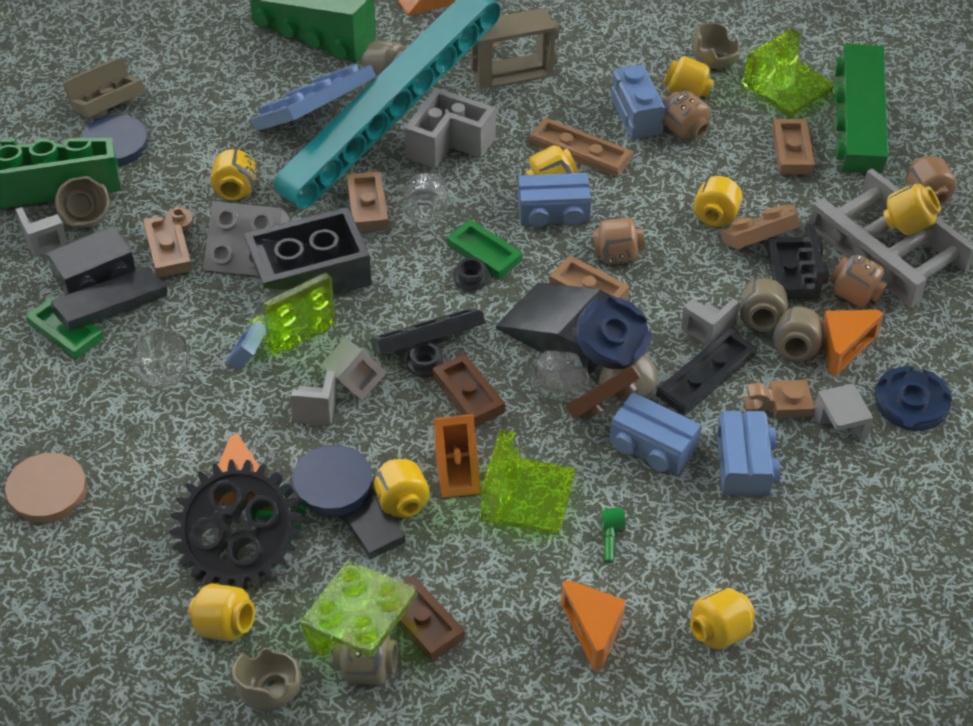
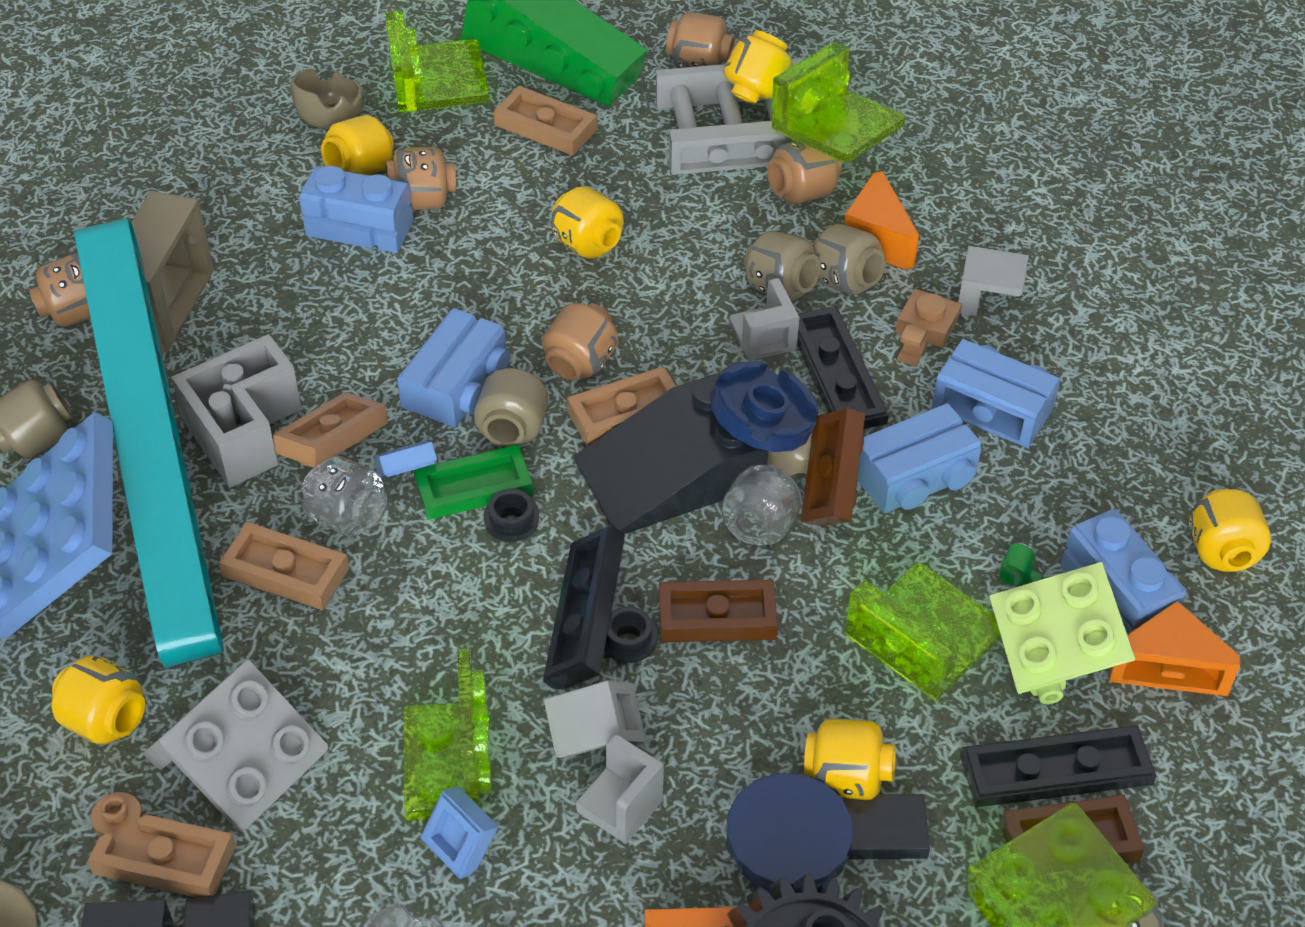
camera: 60 degrees left, 0 degrees up
(310, 247) = (358, 664): black slope -> none
(456, 455) = (831, 673): orange slope -> none
(467, 171) = (330, 429): none -> medium nougat plate
(472, 211) = (405, 458): none -> medium blue tile
(474, 597) = (1057, 766): none -> black tile
(543, 235) = (511, 407): none -> dark tan head
(552, 161) = (395, 340): yellow head -> none
(561, 550) = (1061, 630): none -> yellowish green hinge
(582, 146) = (371, 303): medium nougat tile -> none
(637, 568) = (1133, 570): none -> medium blue brick
(772, 223) = (657, 206): medium nougat hinge -> none
(798, 264) = (738, 202): black bracket -> none
(901, 254) = (820, 112): none -> clear neon green bracket
(910, 408) = (969, 227): dark blue tile -> none

